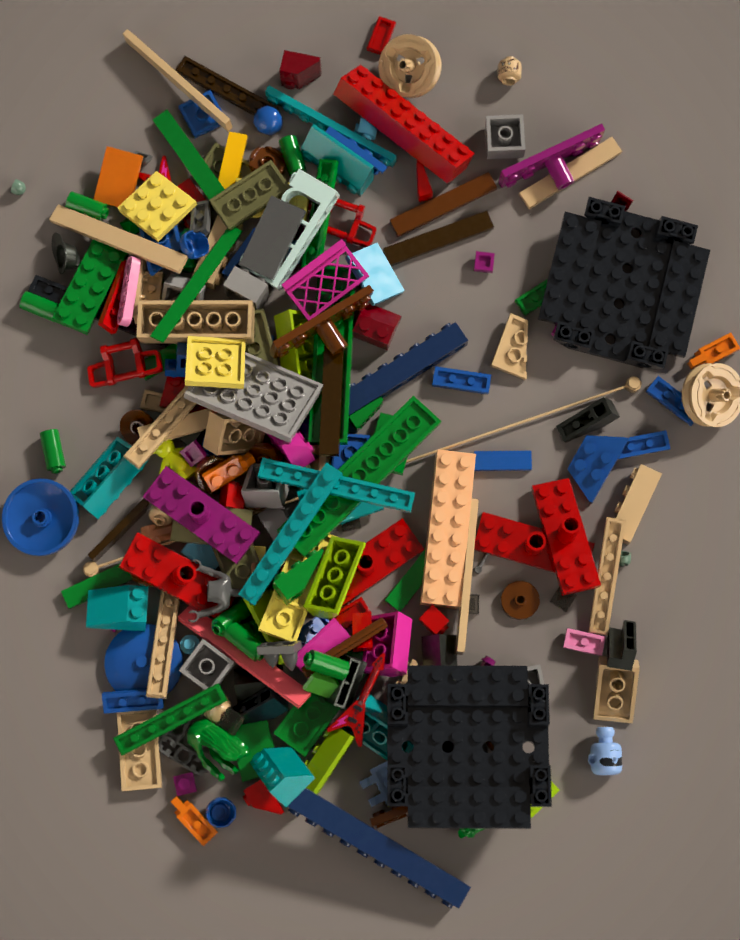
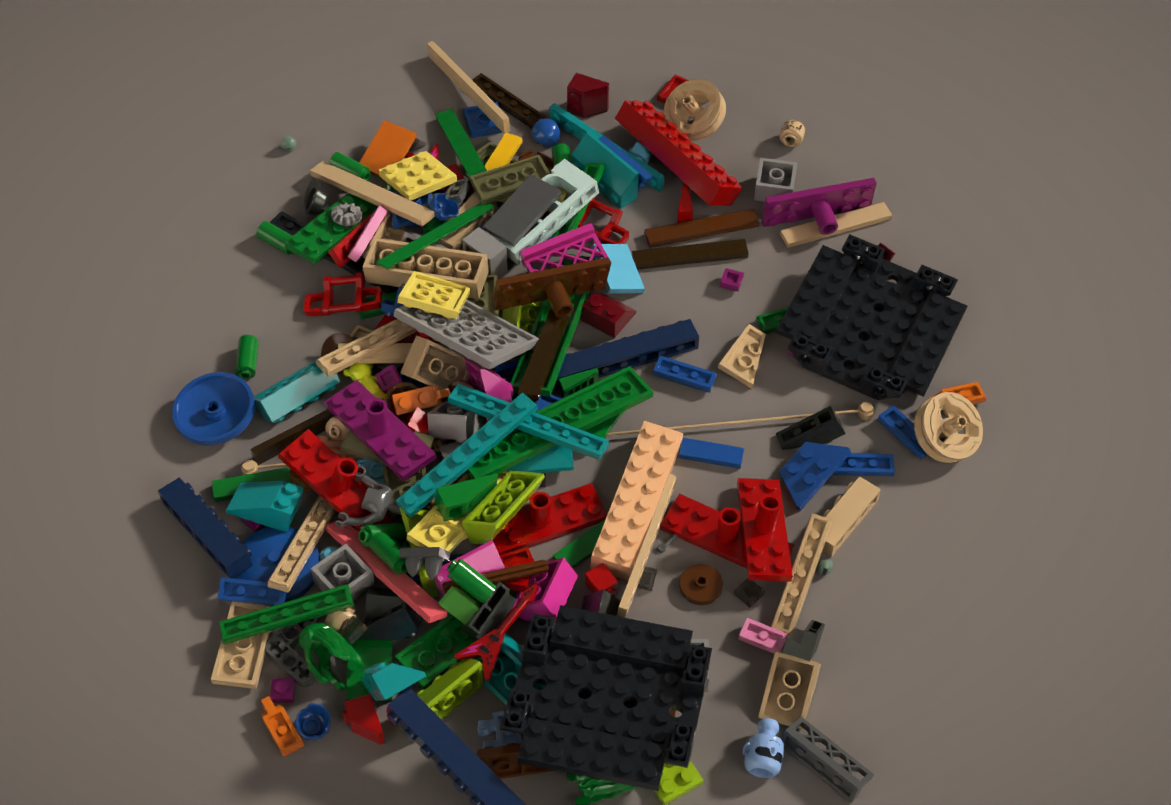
camera: 10 degrees right, 25 degrees down
(71, 645) = (206, 528): none -> dark blue brick
(106, 276) = (348, 219): none -> light grey gear
(654, 754) = (822, 762): none -> dark grey fence

